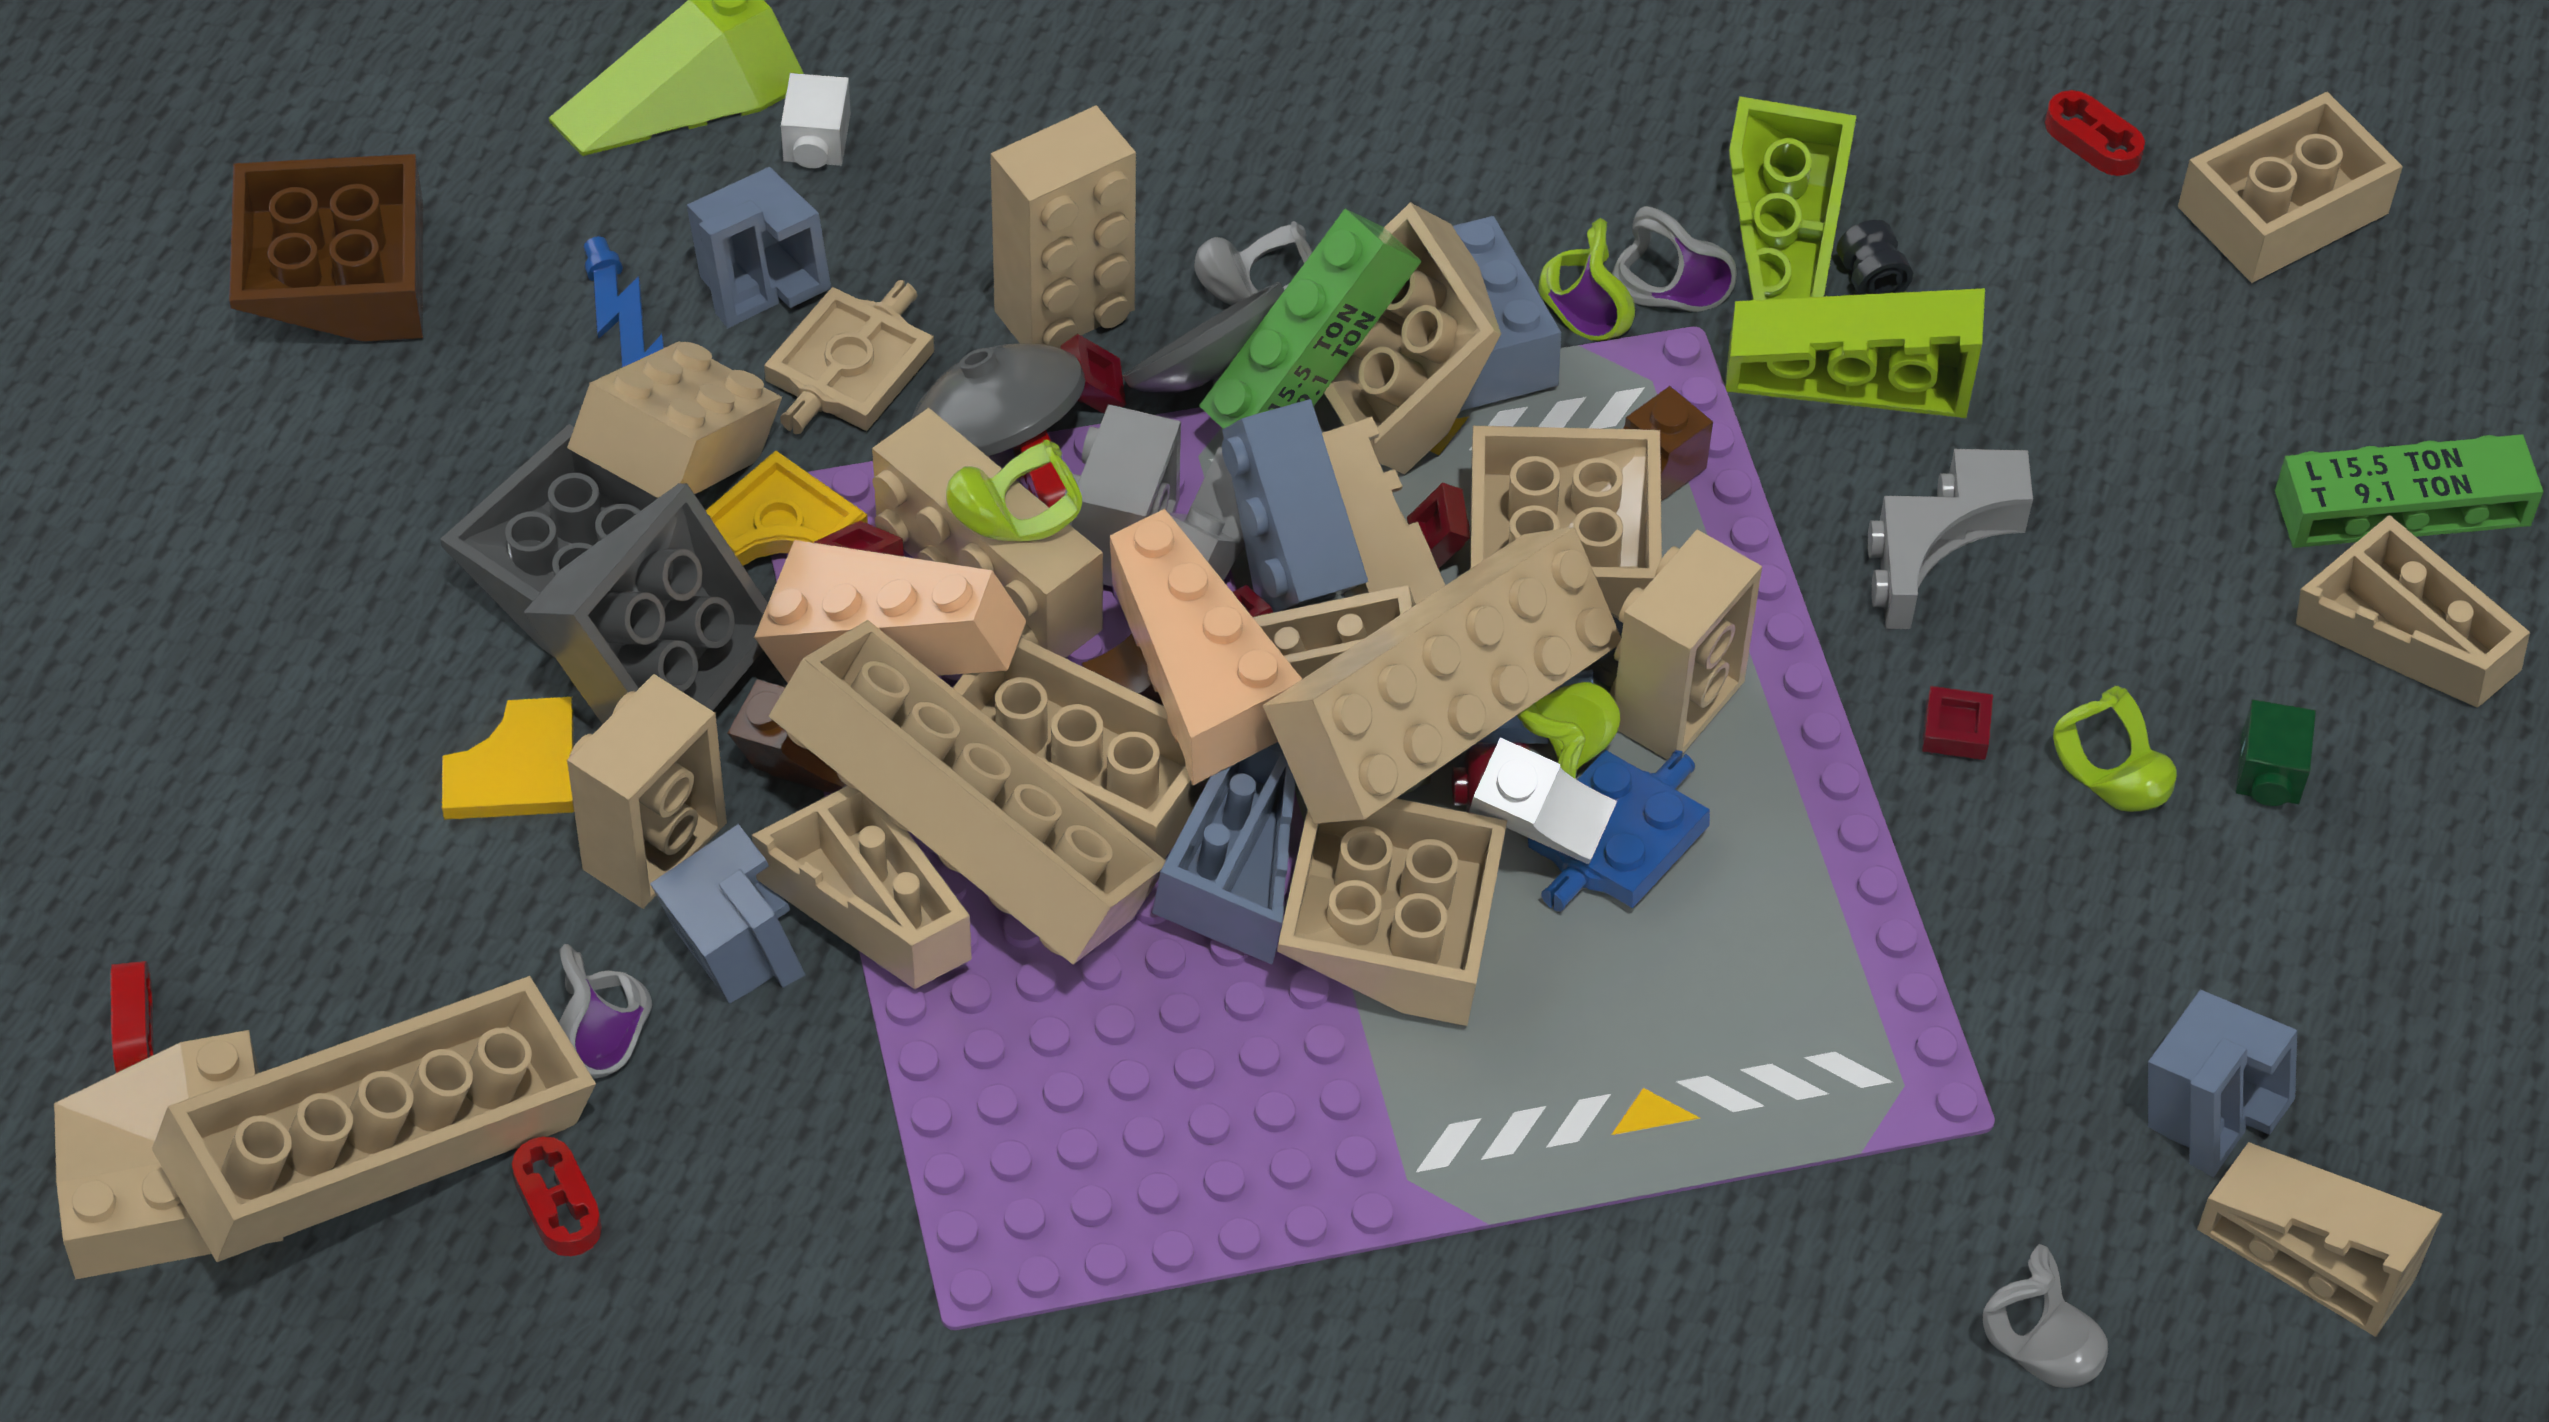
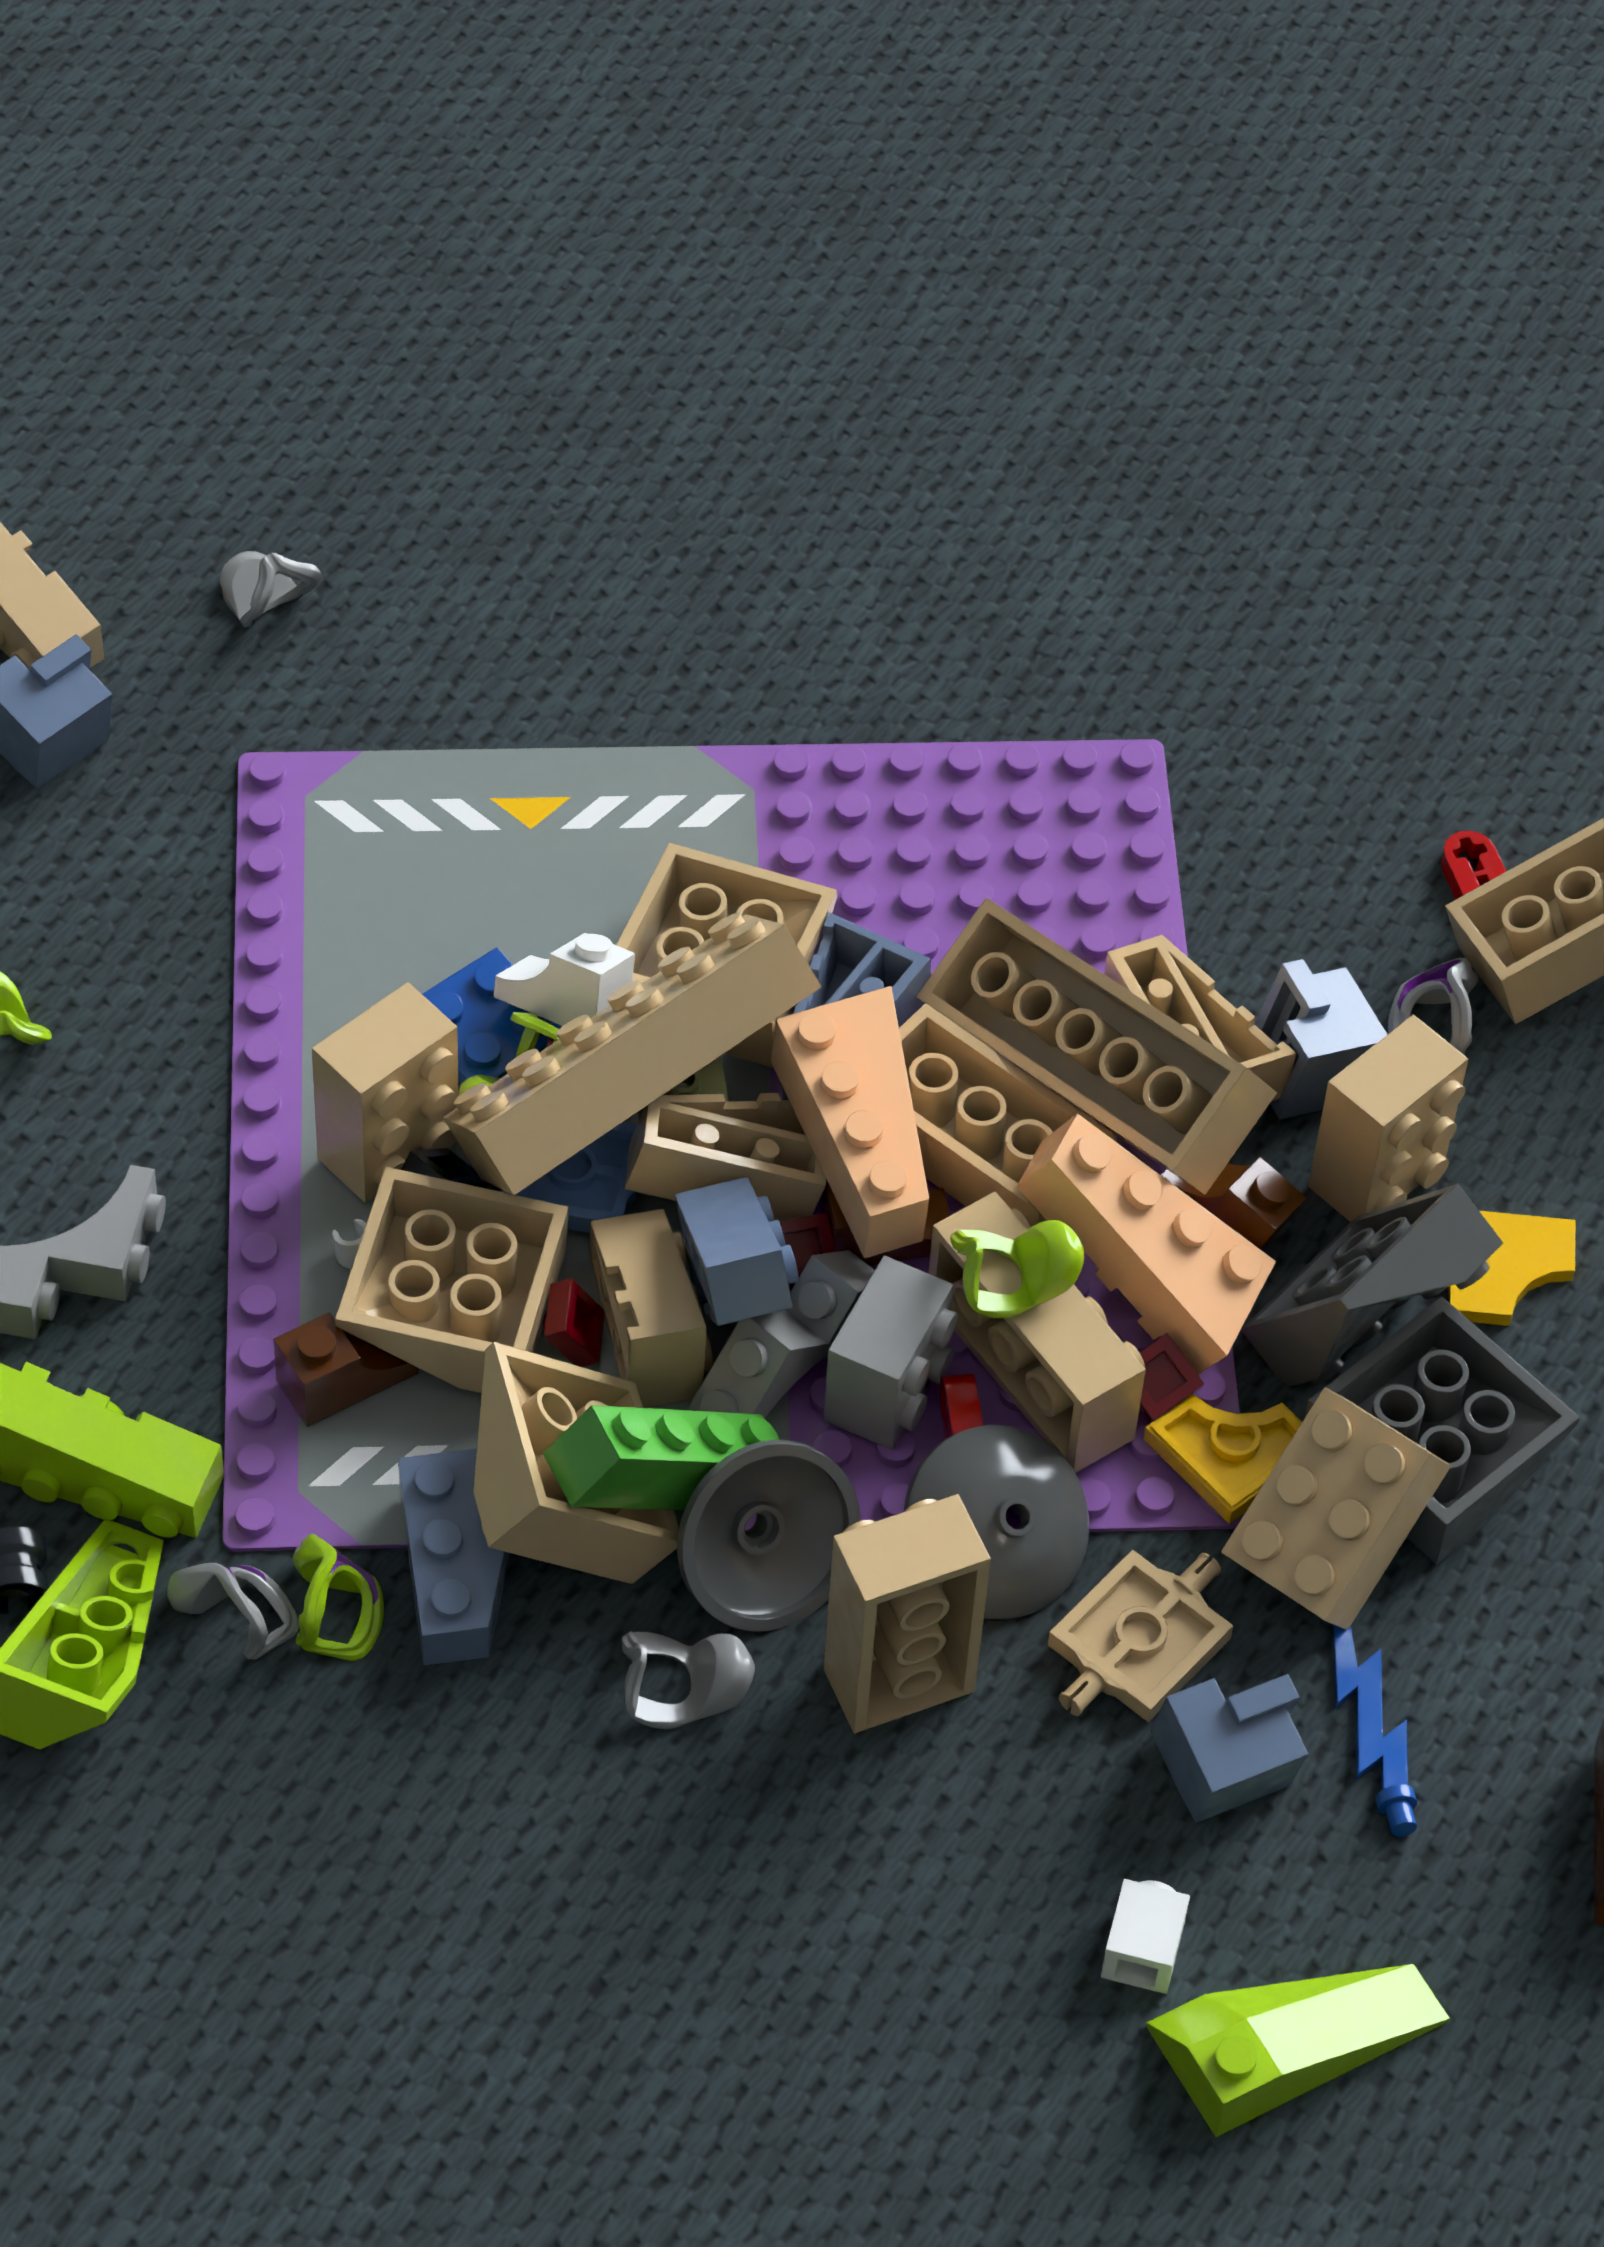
camera: 170 degrees left, 0 degrees up
(1957, 722) = (132, 1080): dark red plate -> none

